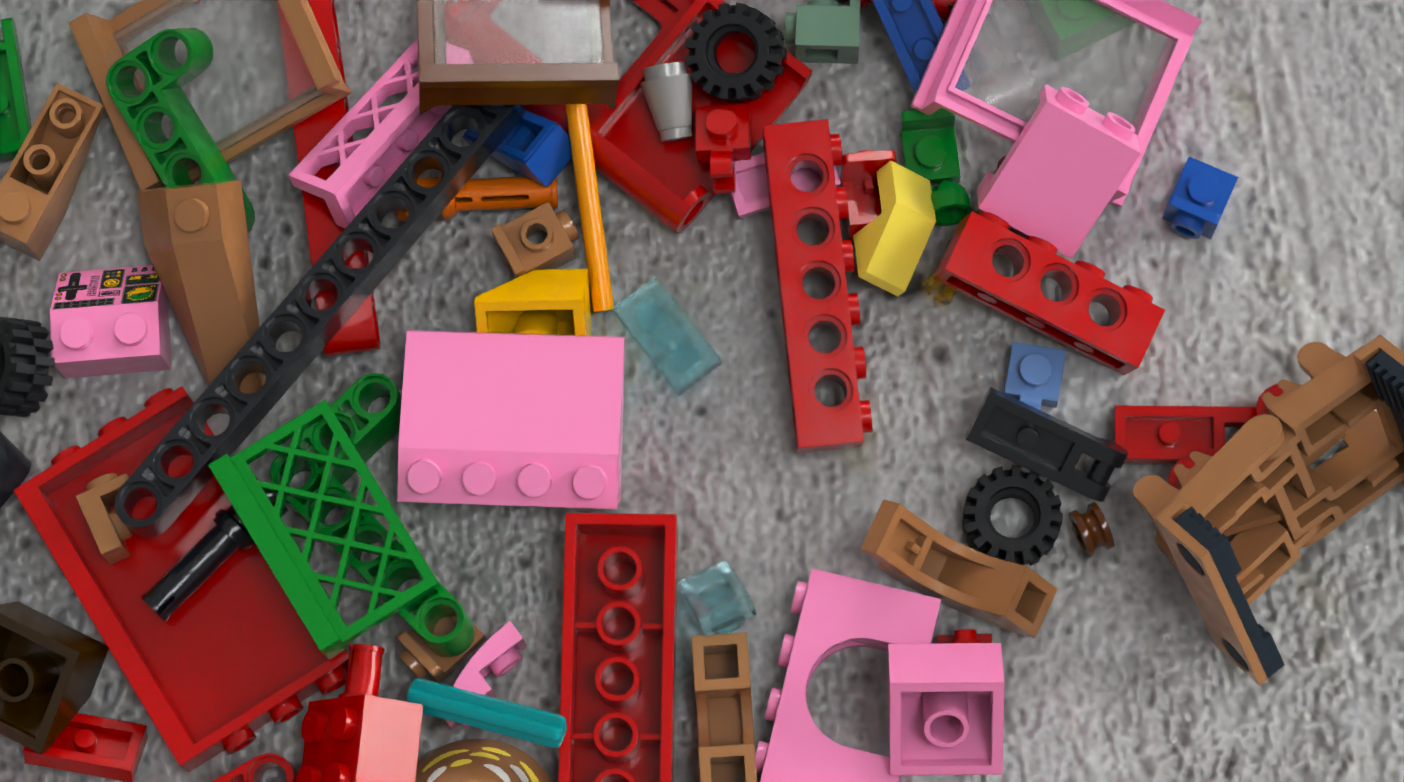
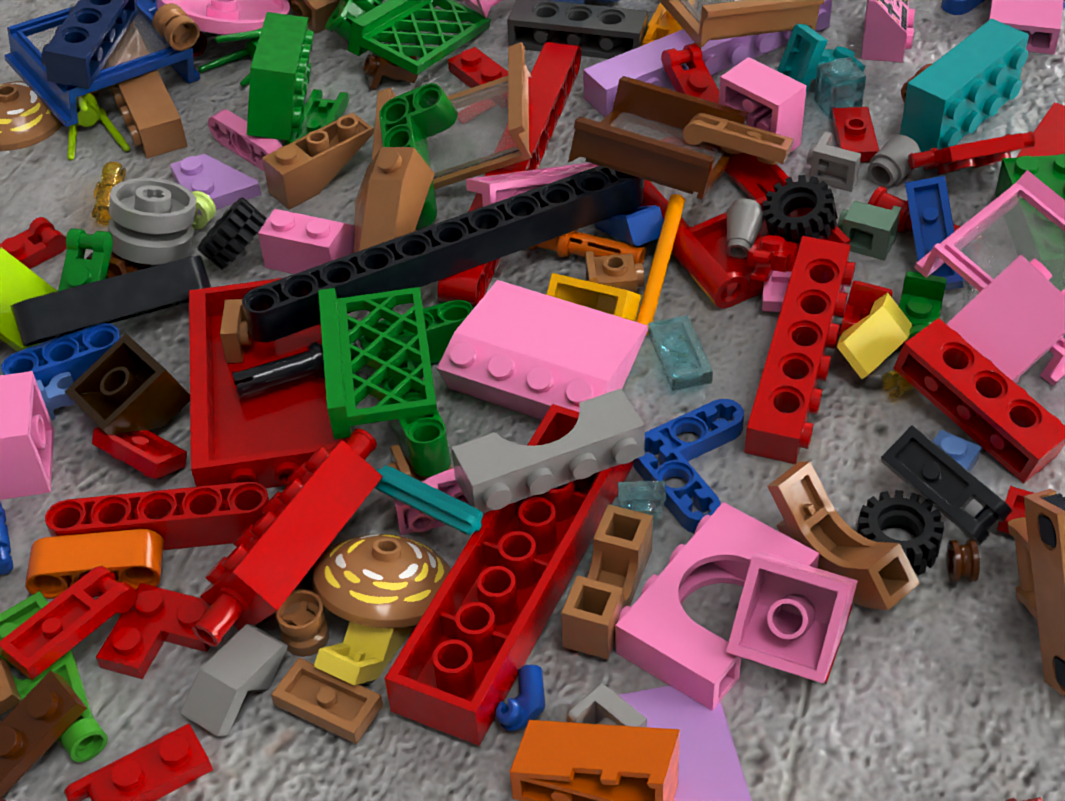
camera: 20 degrees right, 30 degrees down
(556, 657) = (502, 472): none -> light grey arch
(720, 489) = (676, 453): none -> blue beam

